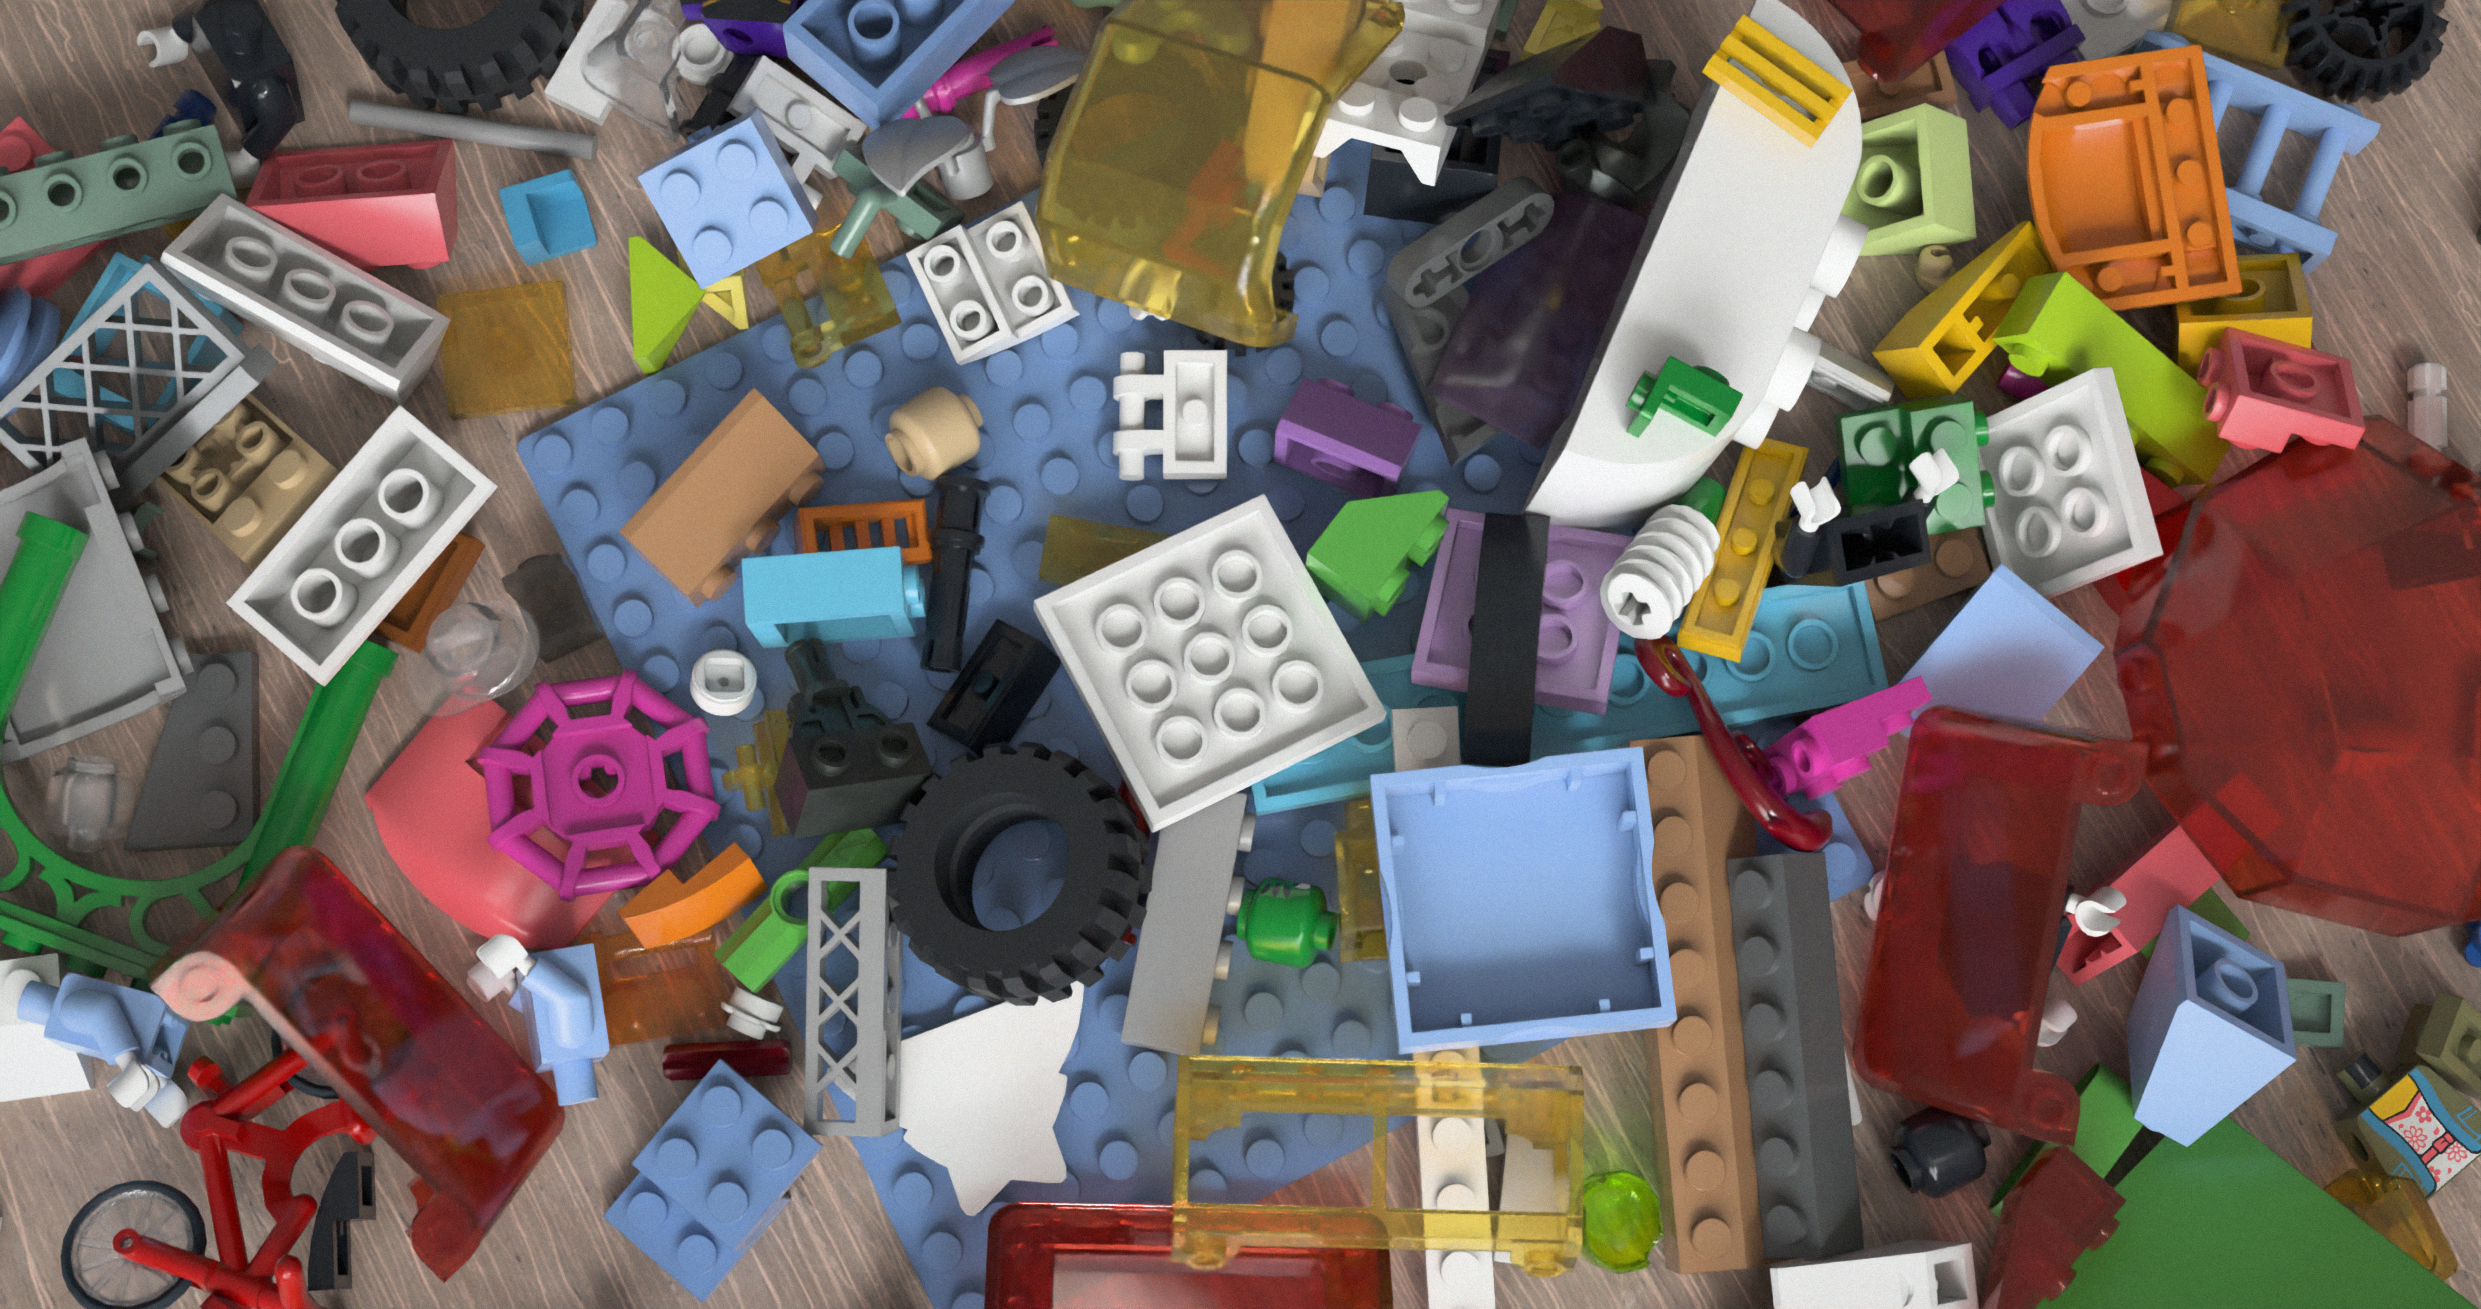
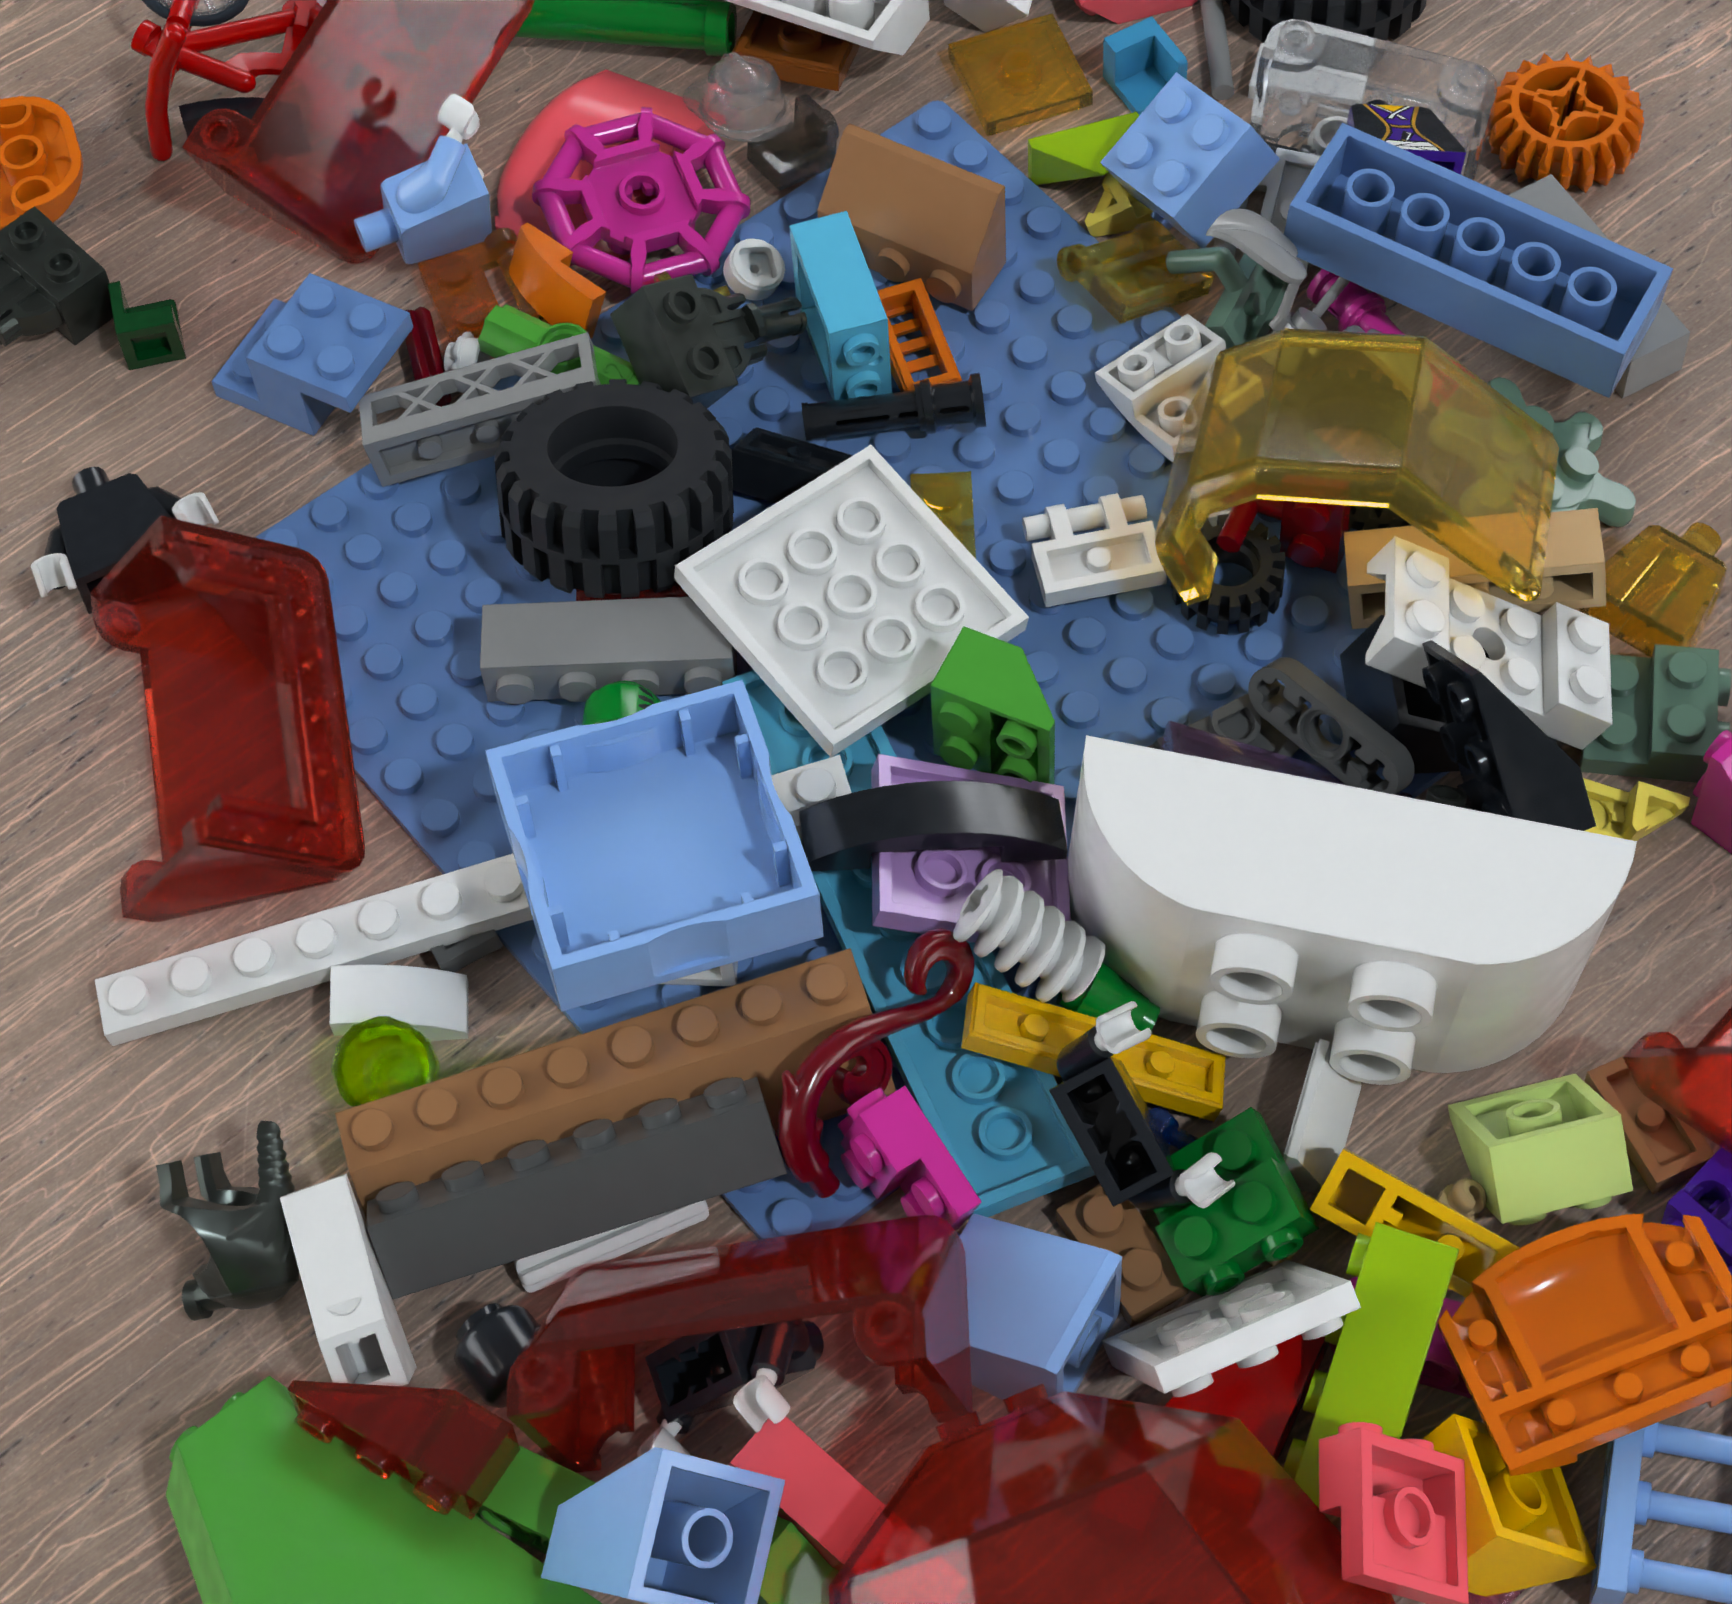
camera: 85 degrees right, 20 degrees down
(934, 433) = (1021, 366): tan head -> none
(988, 1094) = (427, 546): white sticker -> none
(1346, 439) = (1104, 672): medium lavender slope -> none
(1532, 1100) = (444, 700): clear yellow windscreen -> none
(1687, 392) = (1165, 789): green bracket -> none
(1782, 71) = (1557, 815): yellow tile -> none

